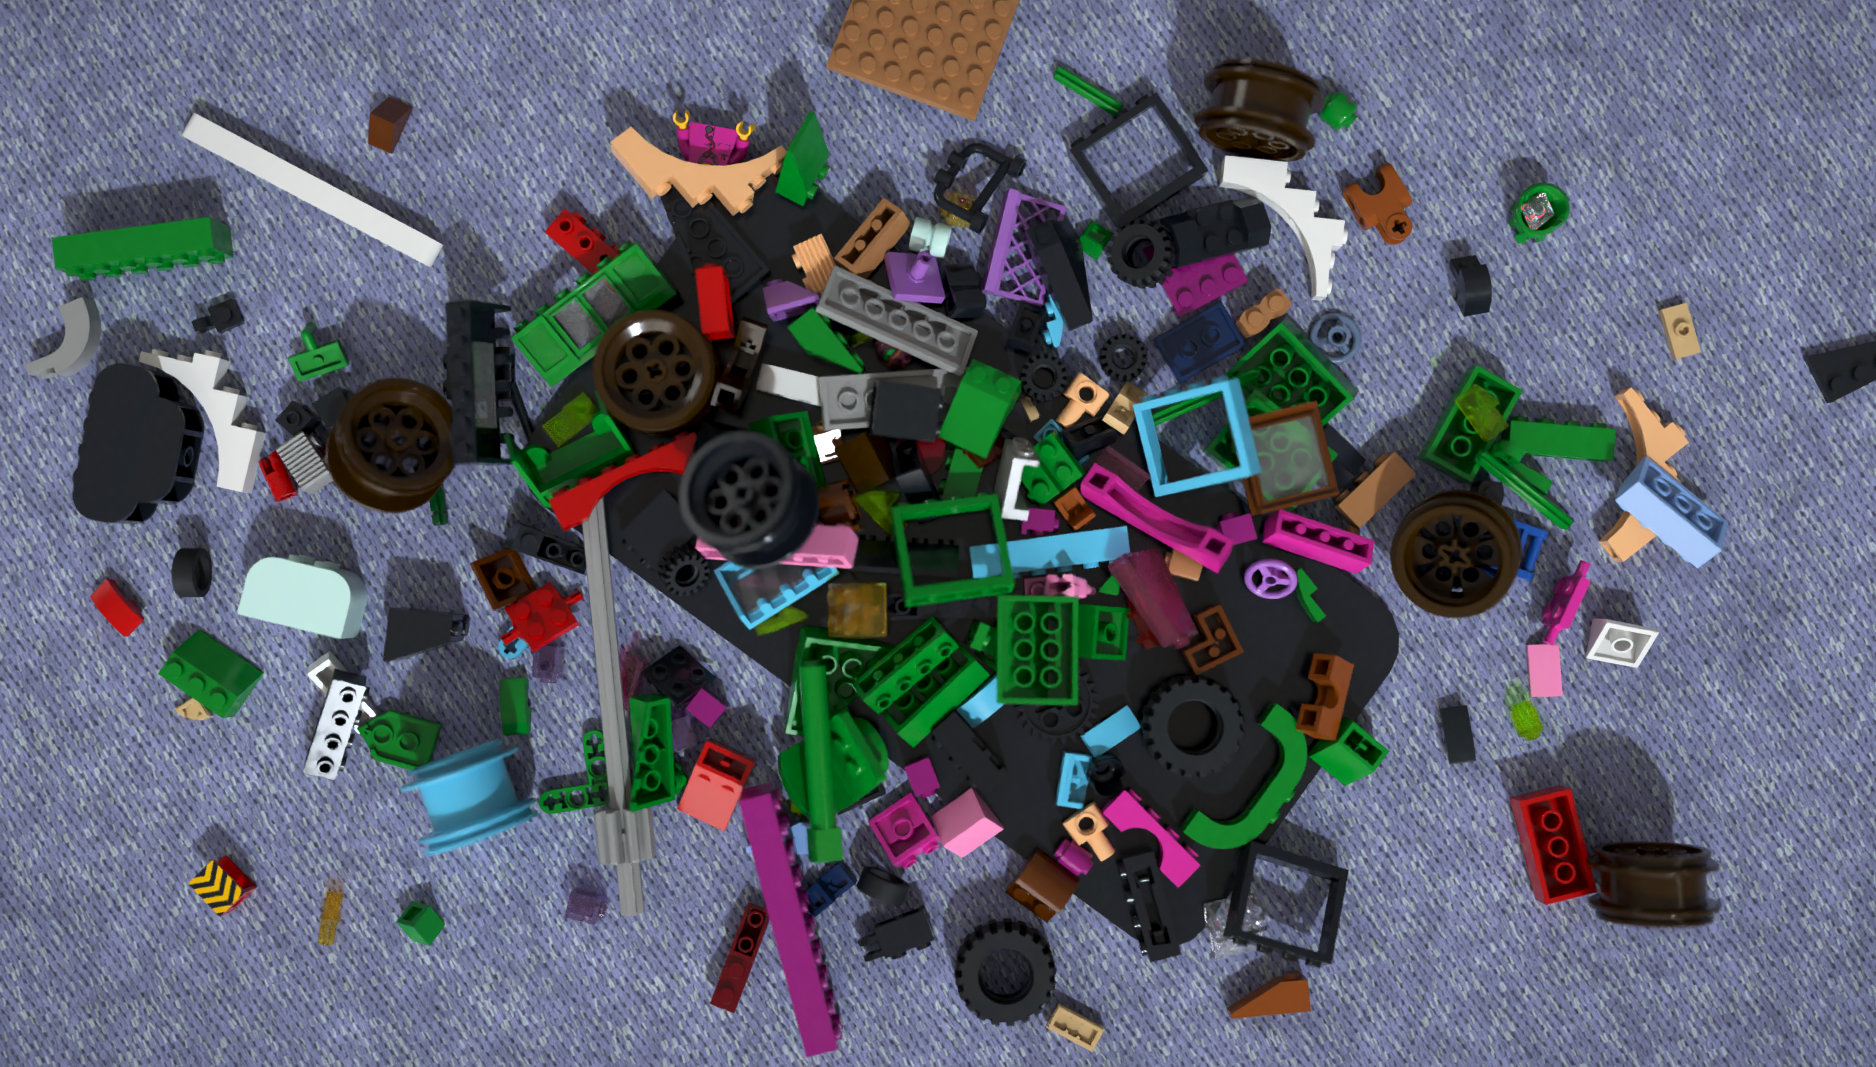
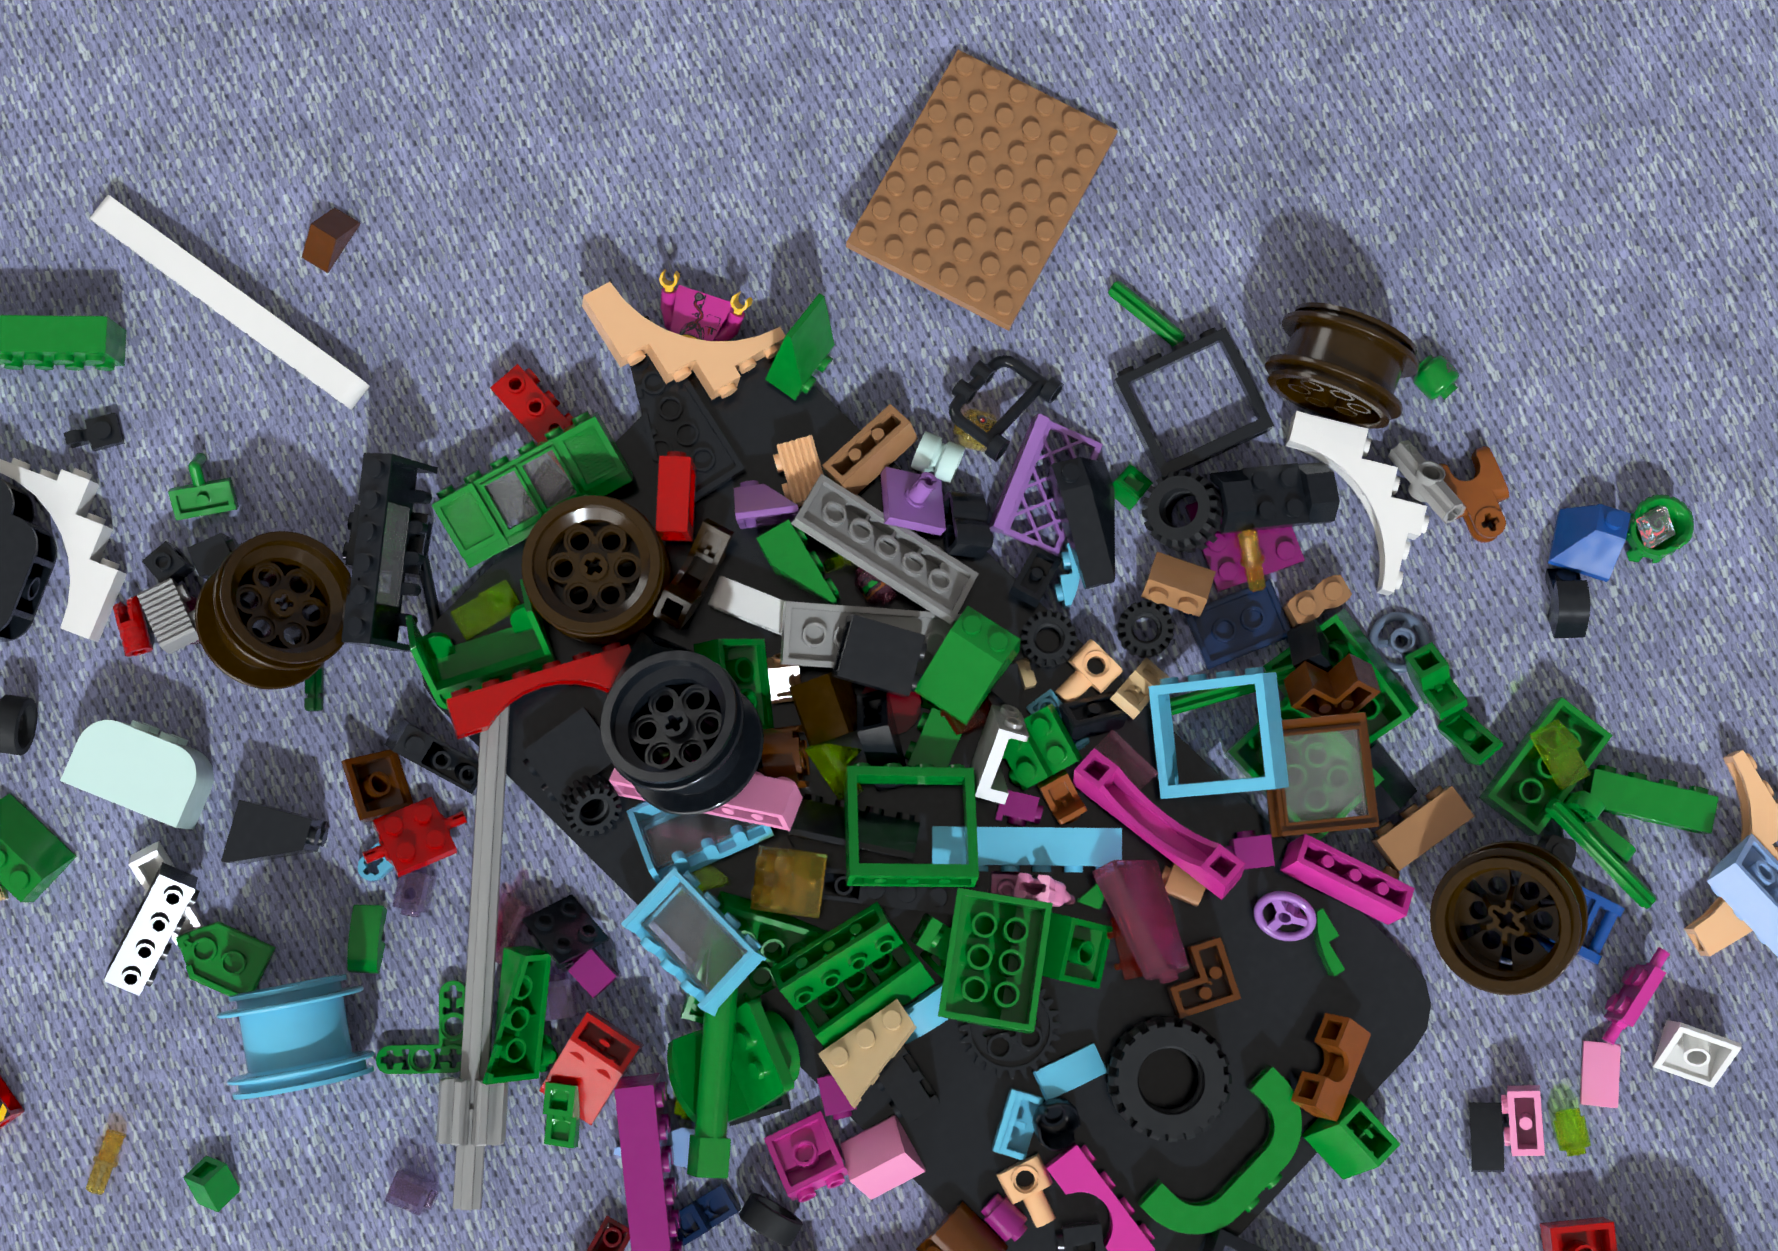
camera: 10 degrees right, 5 degrees down
(700, 826) = (562, 1113): none -> green slope
(786, 668) = (694, 939): none -> window
(941, 738) = (865, 1050): none -> tan wing
(1146, 316) = (1178, 584): none -> medium nougat brick
(1205, 286) = (1252, 559): none -> clear yellow axle
(1265, 358) = (1310, 645): none -> black slope
(1291, 387) = (1335, 692): none -> reddish brown brick
(1342, 200) = (1427, 481): none -> light grey piece
(1367, 367) = (1432, 681): none -> green brick
(1404, 409) = (1469, 737): none -> green slope
(1483, 229) = (1589, 540): none -> blue slope
(1488, 716) = (1525, 1120): none -> bright pink brick

